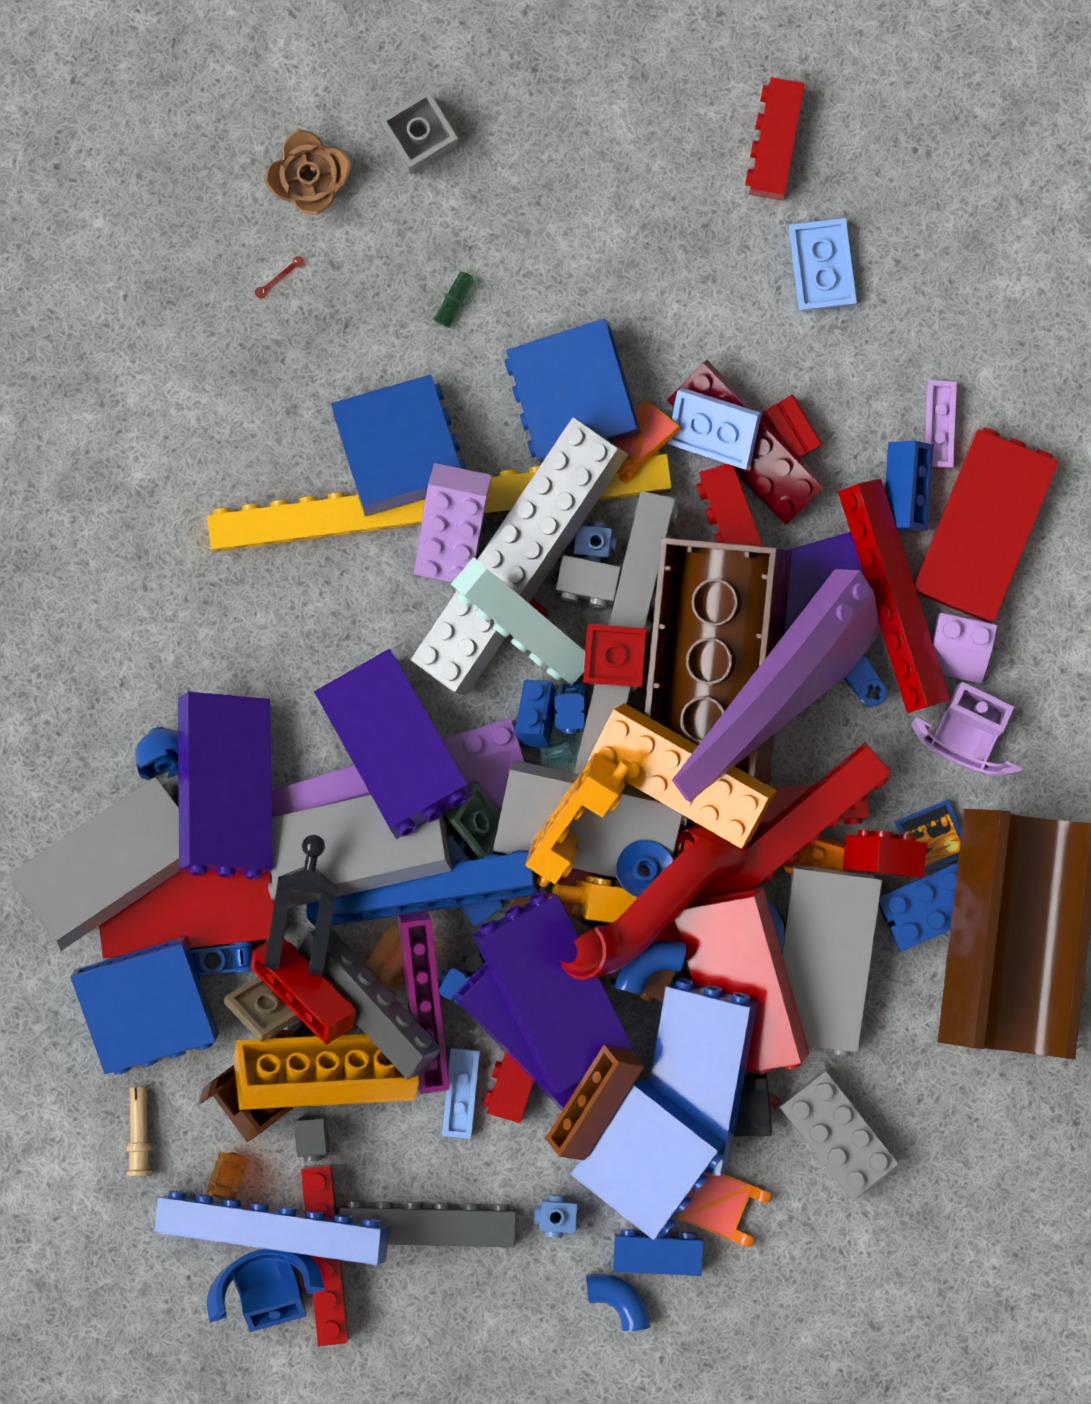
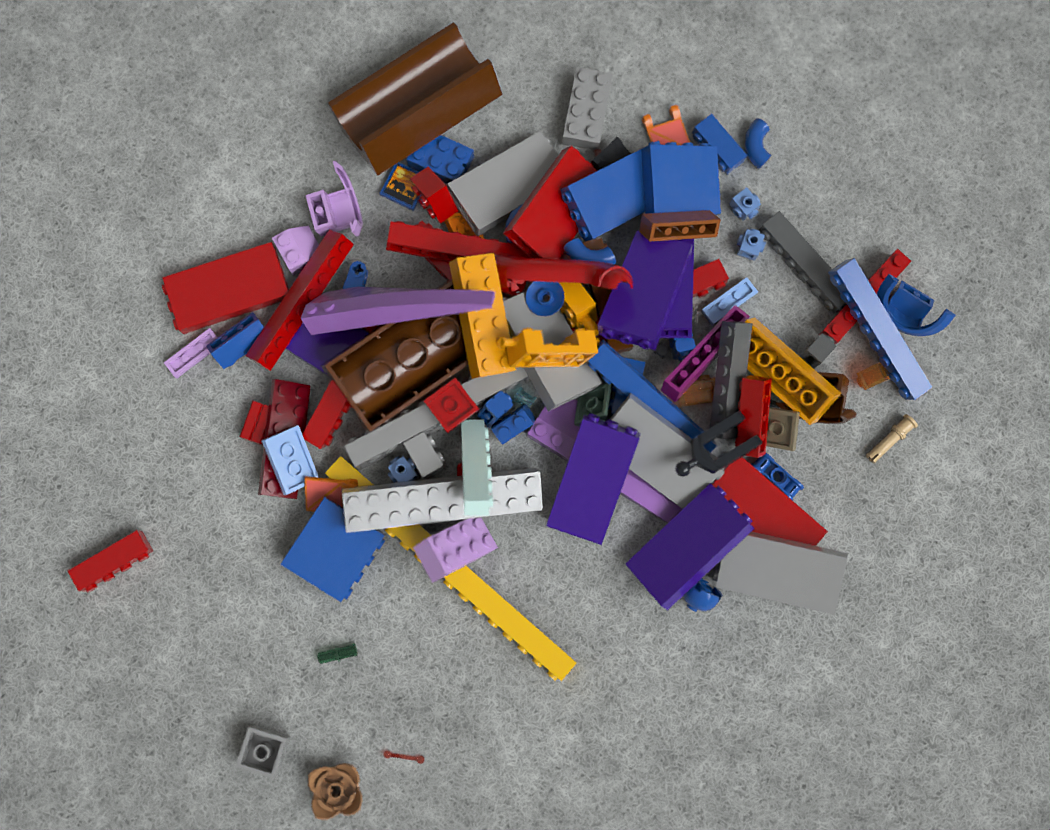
camera: 135 degrees left, 5 degrees down
(145, 1006) = (831, 489): blue brick -> none
(394, 442) = (438, 615): blue brick -> none
(501, 1168) = (750, 244): none -> medium blue brick
(822, 264) = (159, 481): light blue plate -> none

